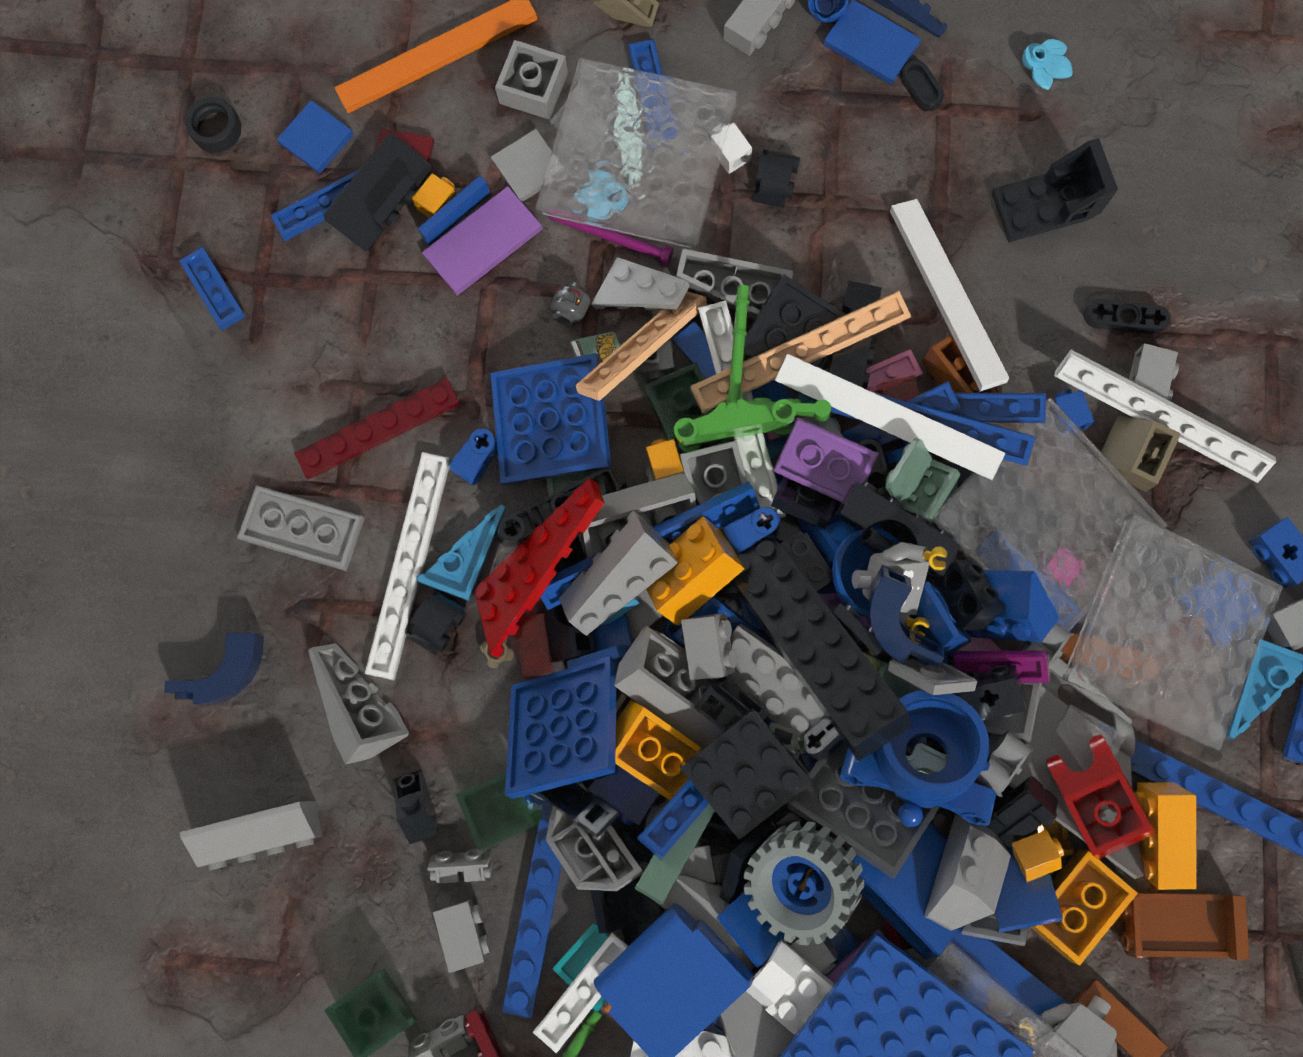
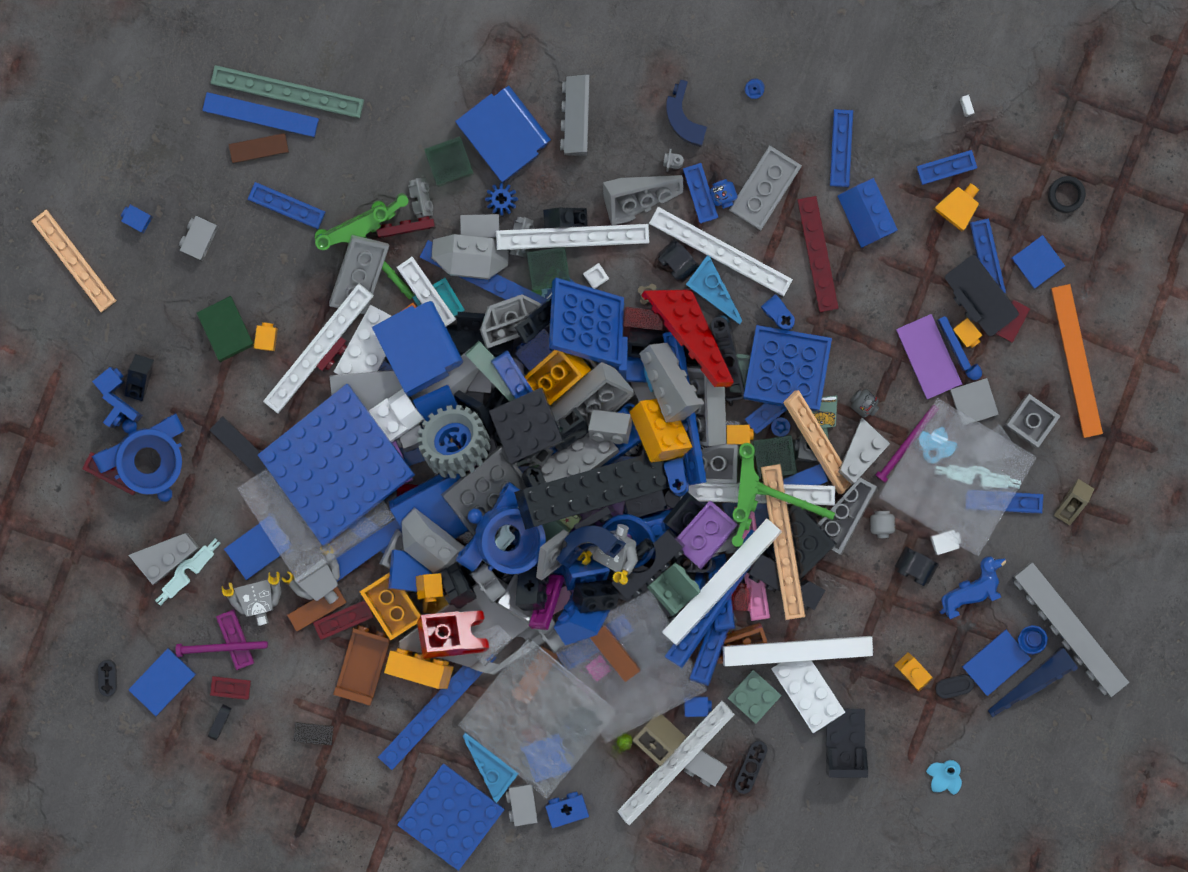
camera: 100 degrees right, 10 degrees up
(119, 284) = (966, 106): none -> white tile
(159, 582) = (754, 88): none -> blue tile
(219, 438) = (841, 148): none -> blue tile
(263, 256) = (959, 206): none -> light orange torso
(288, 669) = (672, 161): none -> light grey hinge
(300, 374) = (867, 213): none -> blue slope
(308, 940) = (504, 133): none -> blue piece
(321, 582) = (723, 193): none -> blue head
(329, 617) = (700, 193): none -> blue plate
(402, 905) = (506, 194): none -> blue gear
(440, 791) = (572, 237): none -> white tile
(488, 173) = (974, 372): none -> blue hinge
(490, 736) = (596, 276): none -> white tile
(507, 939) = (469, 256): none -> light grey wedge
(627, 435) = (764, 416): none -> blue plate
(636, 410) = (780, 427): none -> blue tile
(731, 235) = (882, 524): none -> light grey head
(785, 90) = (976, 590): none -> blue animal
(924, 131) = (913, 671): none -> light orange torso
(1001, 262) = (809, 693): none -> white plate
(1027, 340) = (754, 696): none -> sand green plate
(1043, 539) = (615, 653): none -> dark orange tile
(1127, 980) = (343, 619): none -> dark red plate
(1157, 498) = (624, 742): none -> clear neon green plate

